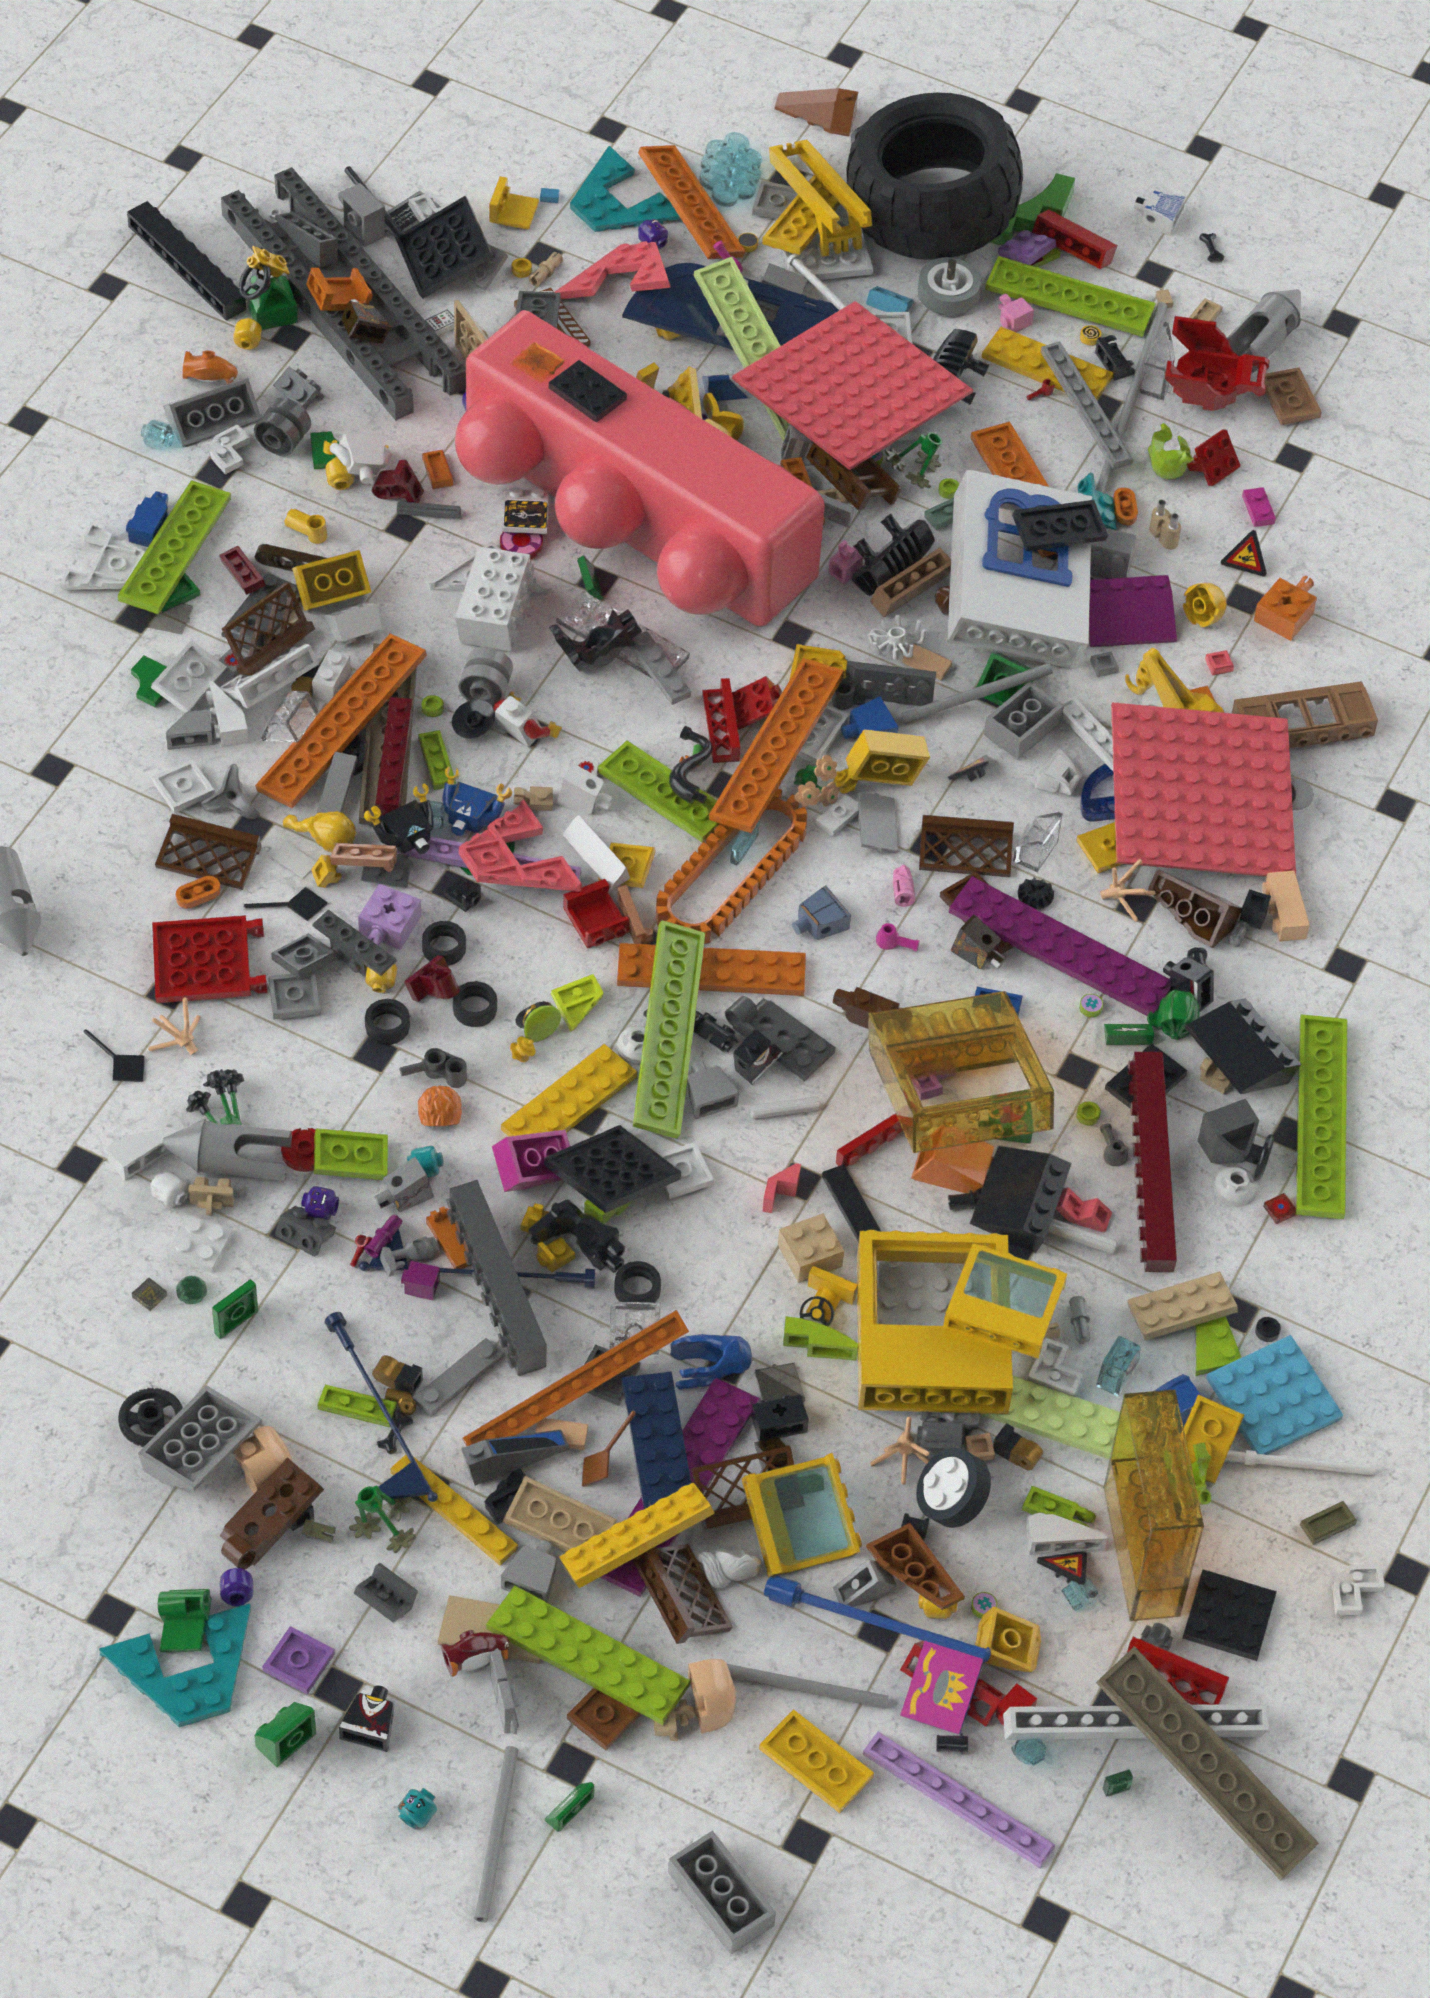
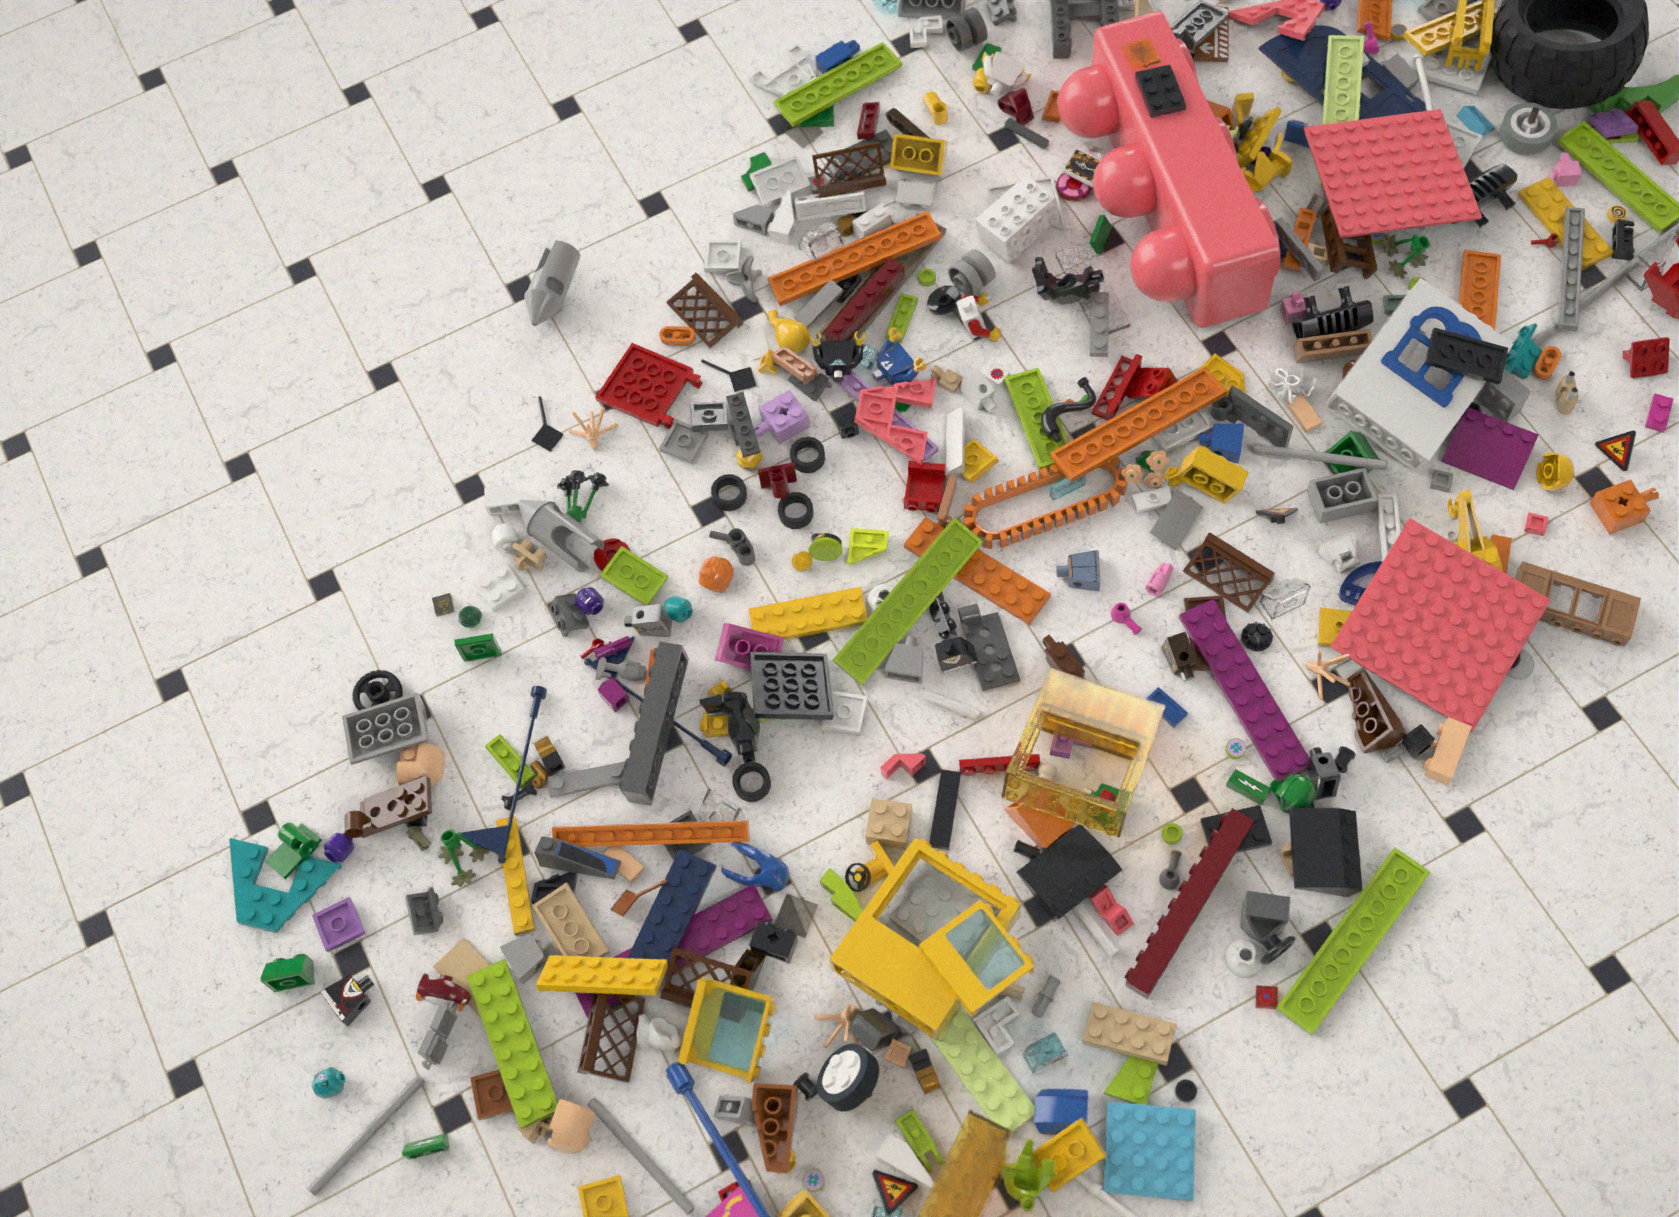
camera: 45 degrees right, 10 degrees up
(1169, 463) = (1607, 345): lime piece -> none

